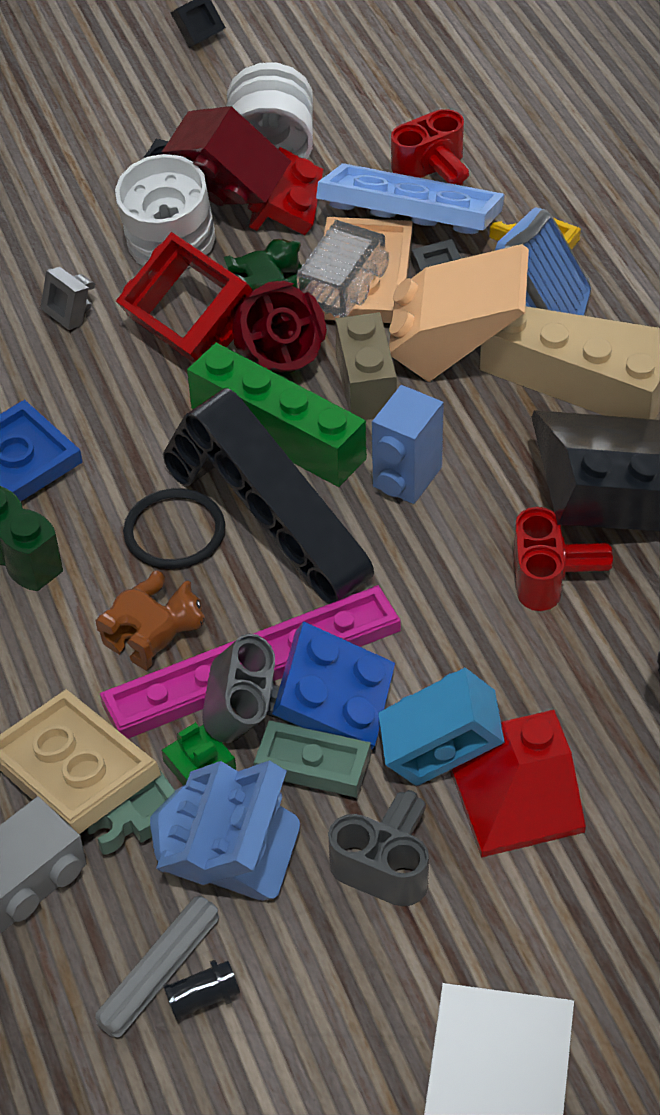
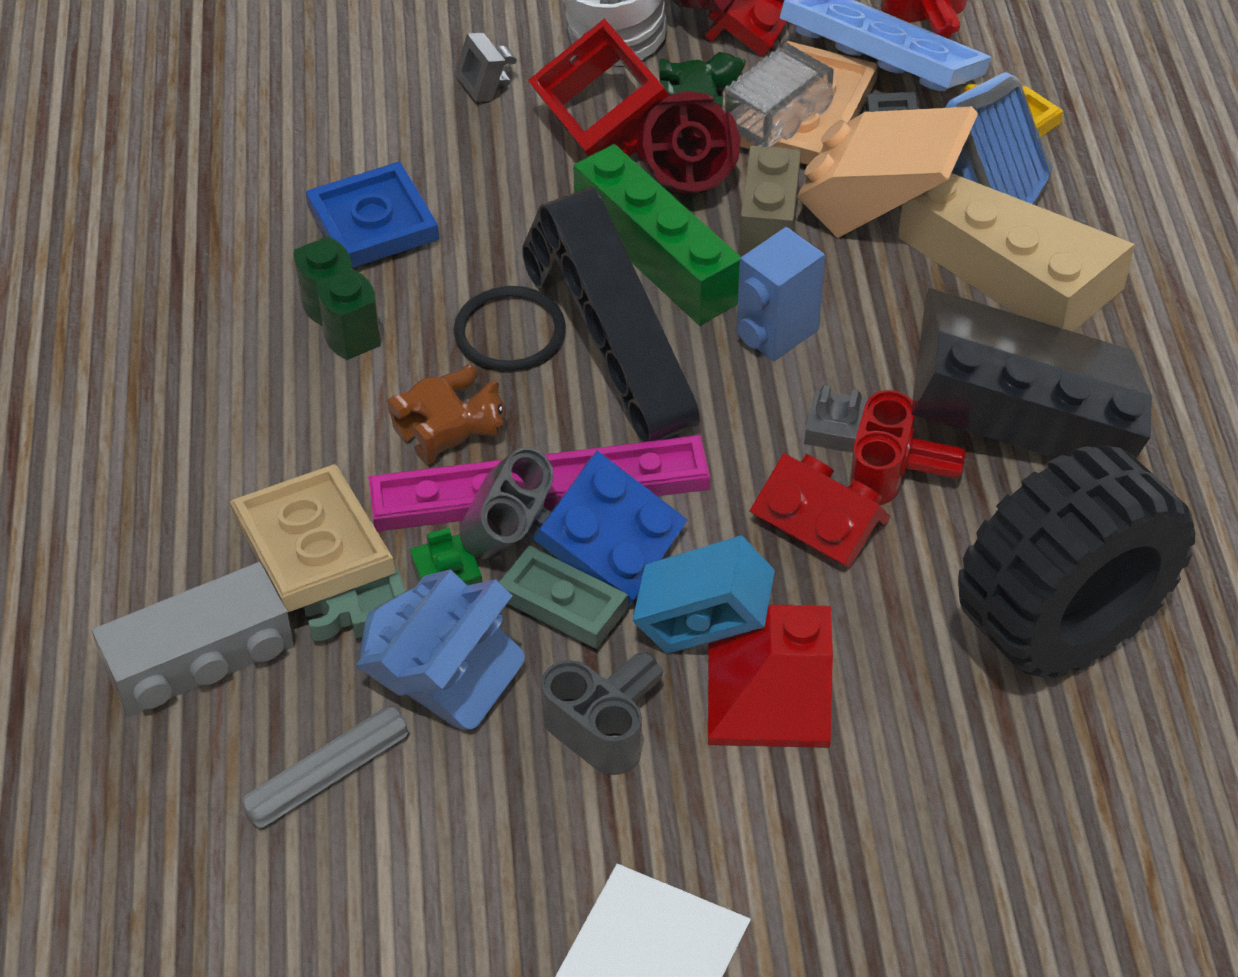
camera: 15 degrees right, 0 degrees up
(202, 989) = (360, 802): black pin -> none
(488, 543) = (834, 419): none -> flat silver tile
(503, 625) = (819, 510): none -> red bracket

